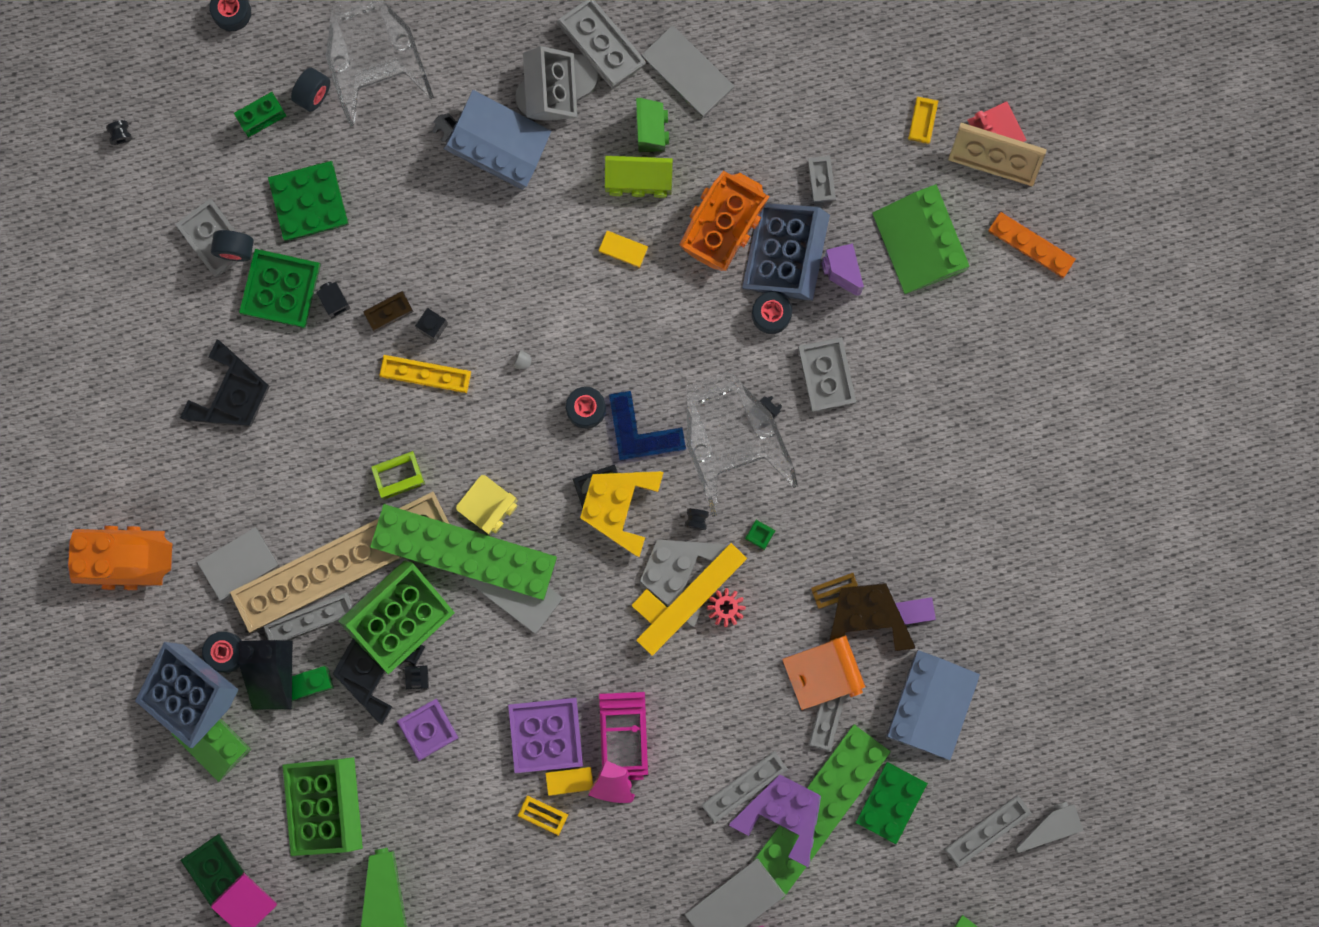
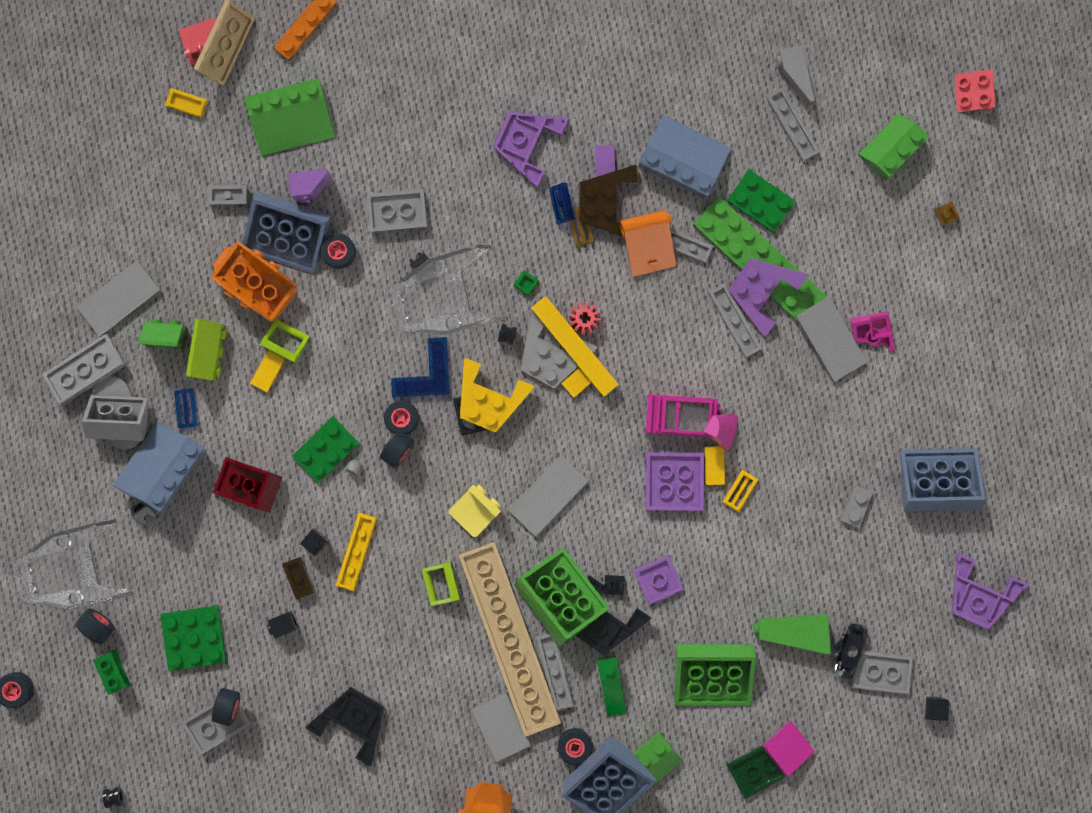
camera: 85 degrees left, 5 degrees up
(267, 673) = (597, 710): black slope -> none
(280, 288) = (267, 669): green plate -> none
(463, 552) = (513, 534): bright green plate -> none
(489, 241) = (247, 484): none -> dark red slope
(539, 325) = (325, 449): none -> green plate
(548, 406) = (397, 449): none -> black wheel
(590, 165) = (185, 407): none -> clear blue tile
(642, 275) = (280, 350): none -> lime tile
(858, 565) = (564, 203): none -> clear blue tile
(929, 507) = (519, 138): none -> medium lavender wing

